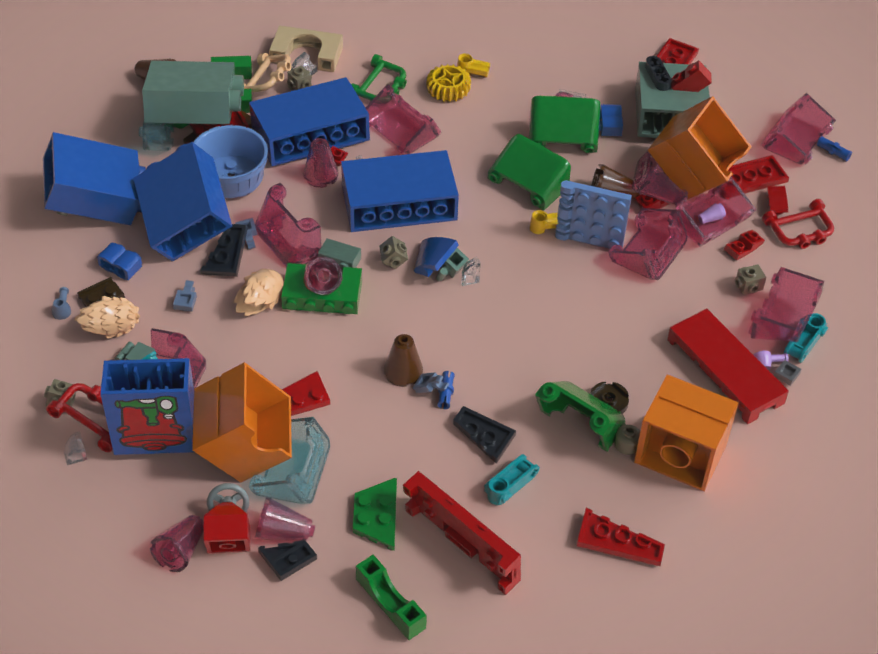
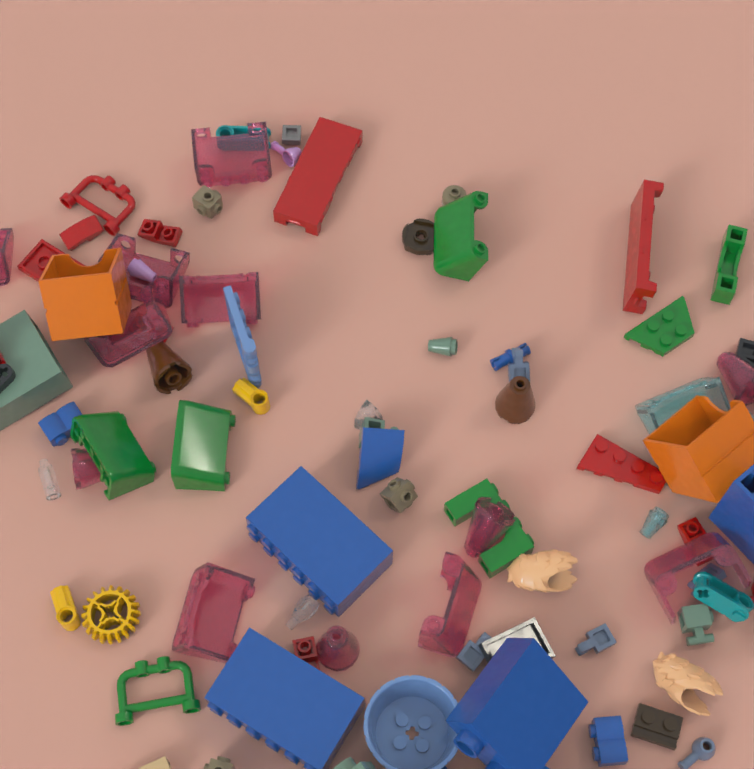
camera: 125 degrees left, 15 degrees up
(342, 253) = (437, 540): sand green brick -> none
(484, 432) = (528, 301): black wing -> none
(491, 353) = (444, 346): none -> sand green cone
(510, 480) = (556, 255): teal piece -> none
(607, 537) = (547, 164): red wing -> none
(685, 432) = (429, 148): orange piece -> none

